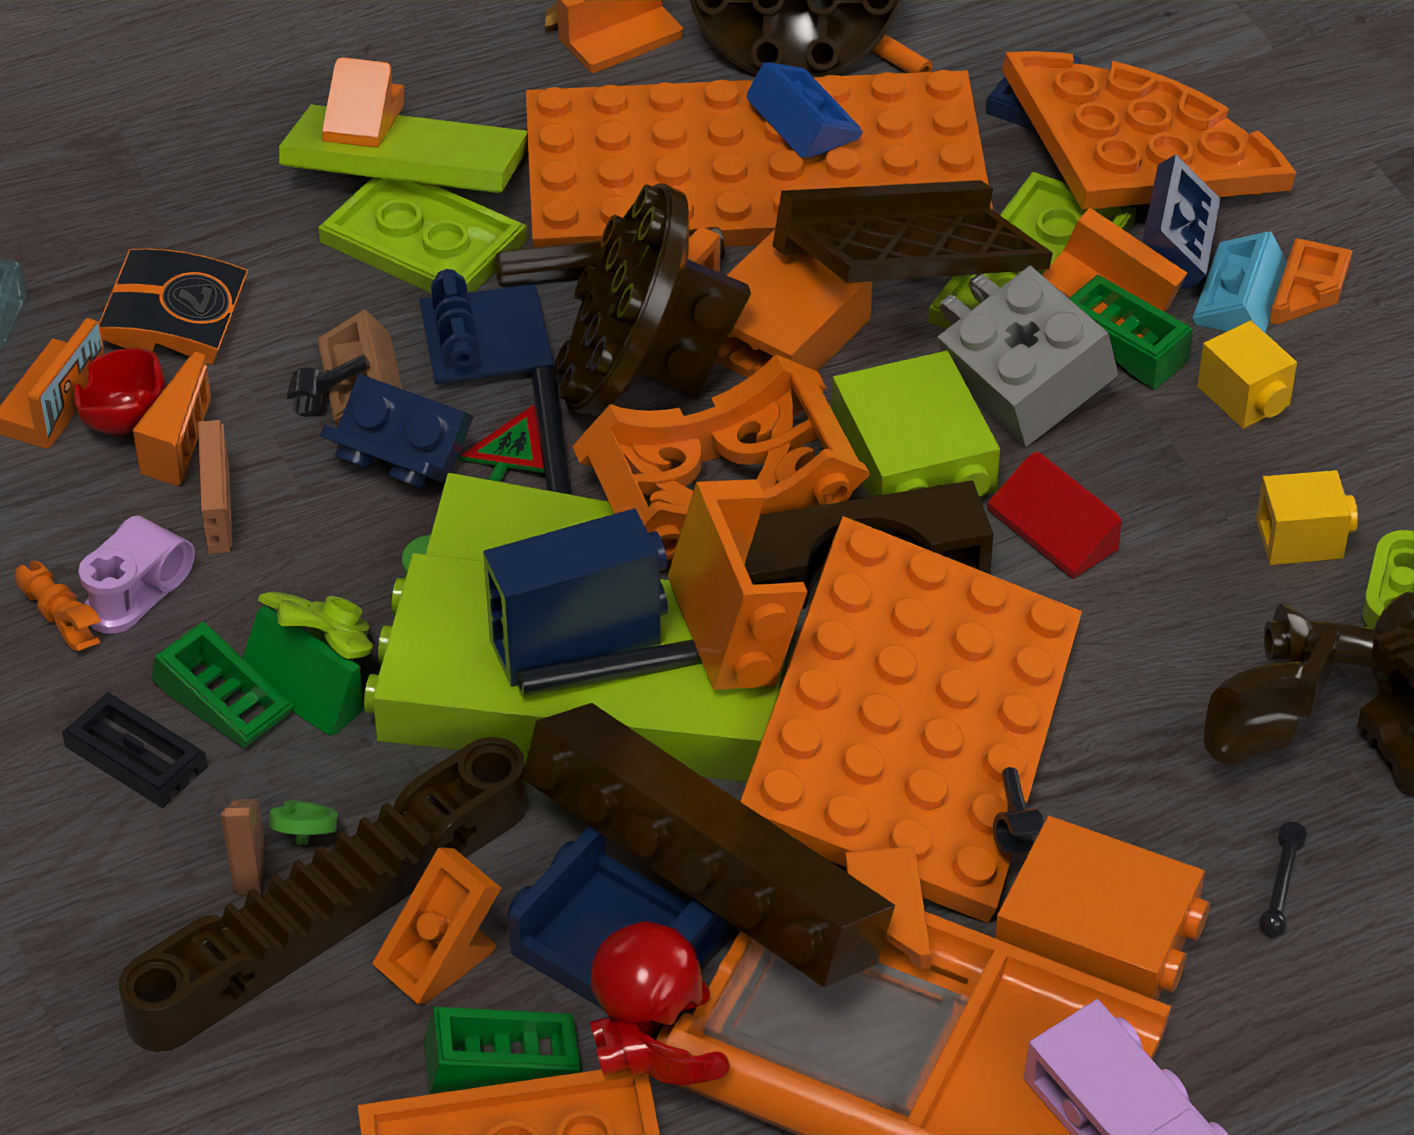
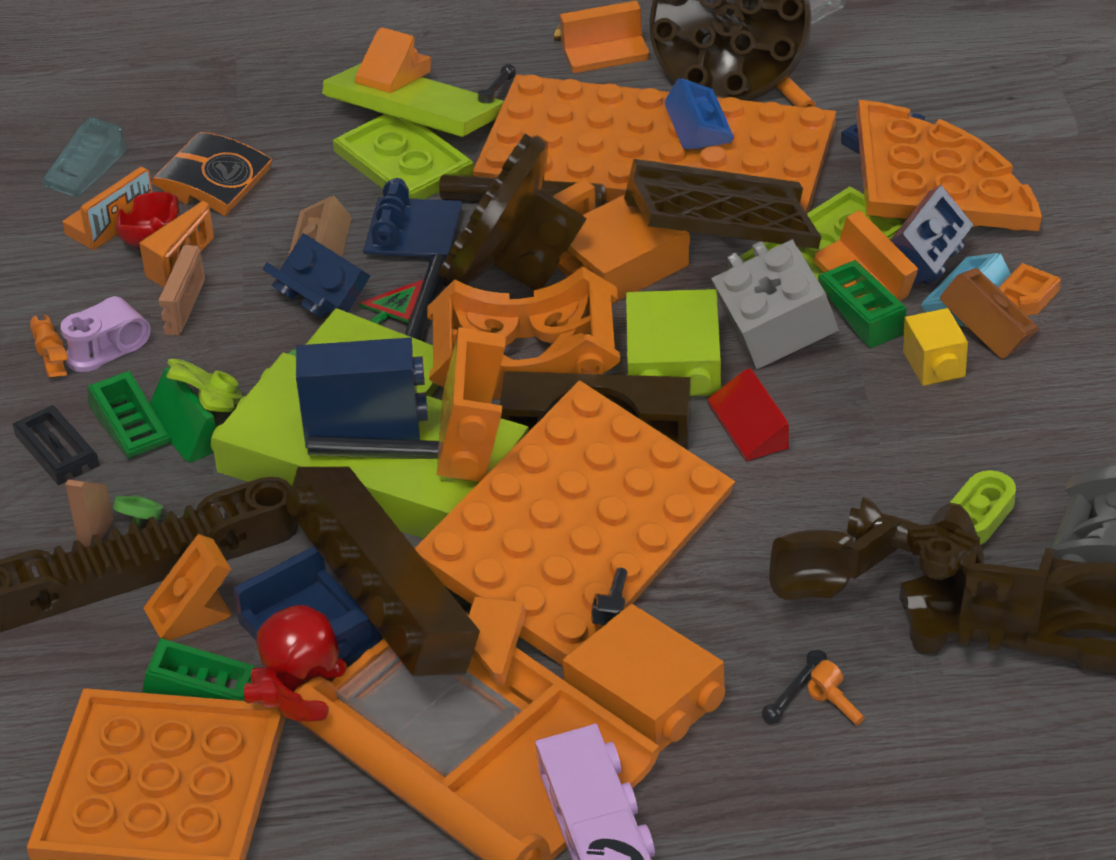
camera: 20 degrees right, 5 degrees down
(313, 383) = (280, 238): black hand -> none
(505, 127) = (487, 95): none -> black hinge
(1292, 315) = (988, 312): none -> dark orange slope
(1305, 517) = (929, 449): yellow brick -> none
(1321, 871) = (824, 685): none -> orange hand

